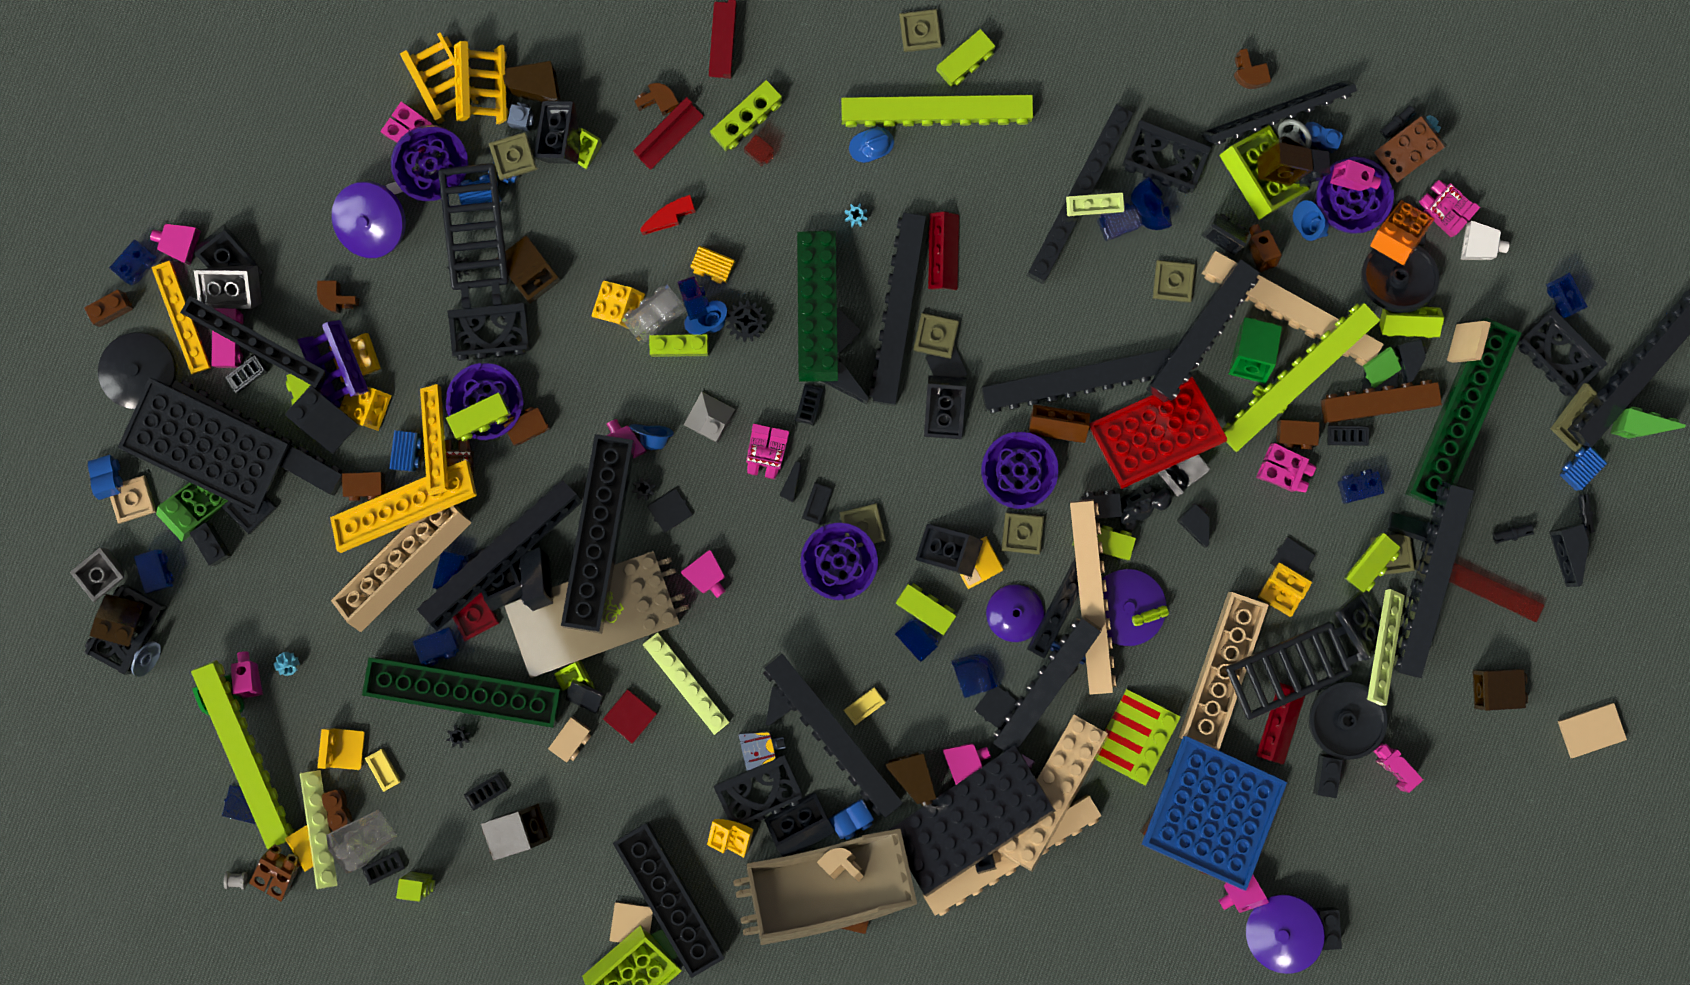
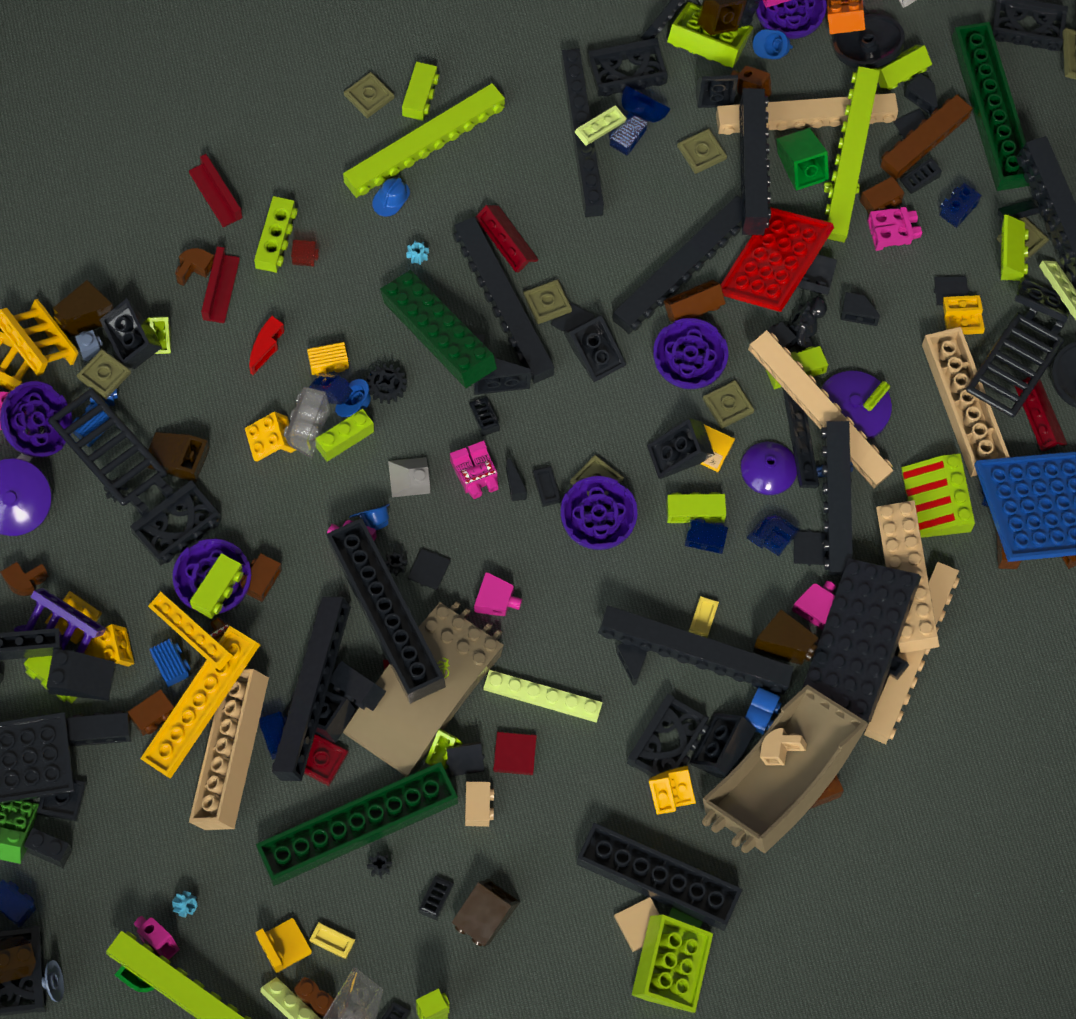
camera: 35 degrees left, 20 degrees down
(436, 646) = (308, 801): clear blue brick -> none
(759, 748) = (641, 704): sand blue torso -> none
(1382, 367) = (907, 110): bright green piece -> none
(1468, 341) = (956, 50): tan tile -> none

